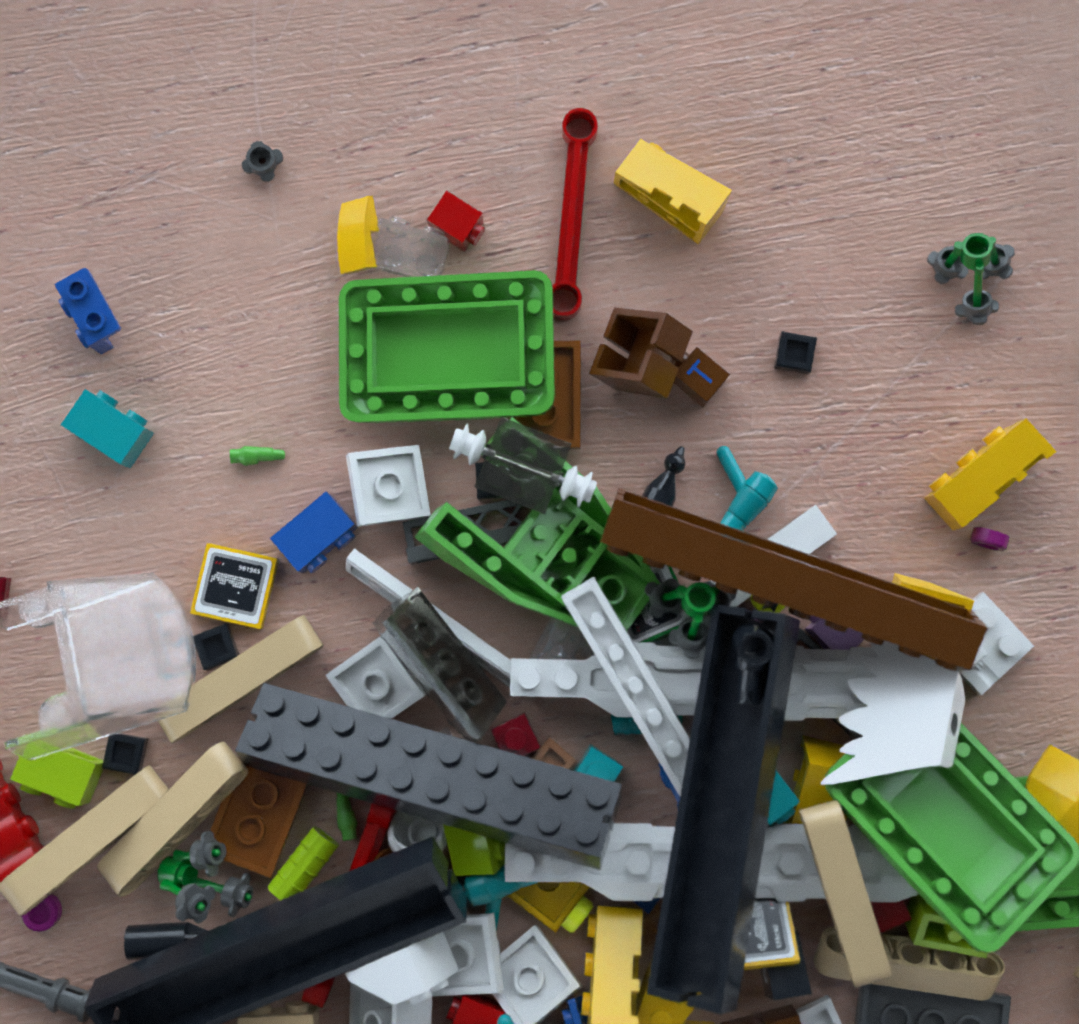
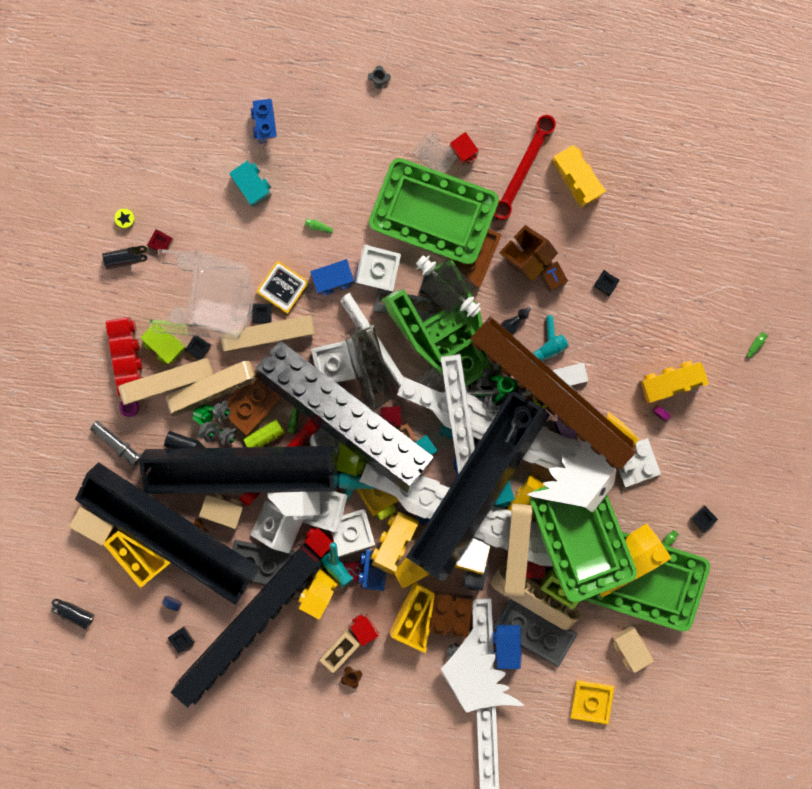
camera: 25 degrees right, 5 degrees up
(354, 240) = (409, 138): yellow slope -> none
(986, 259) = (715, 272): plant -> none

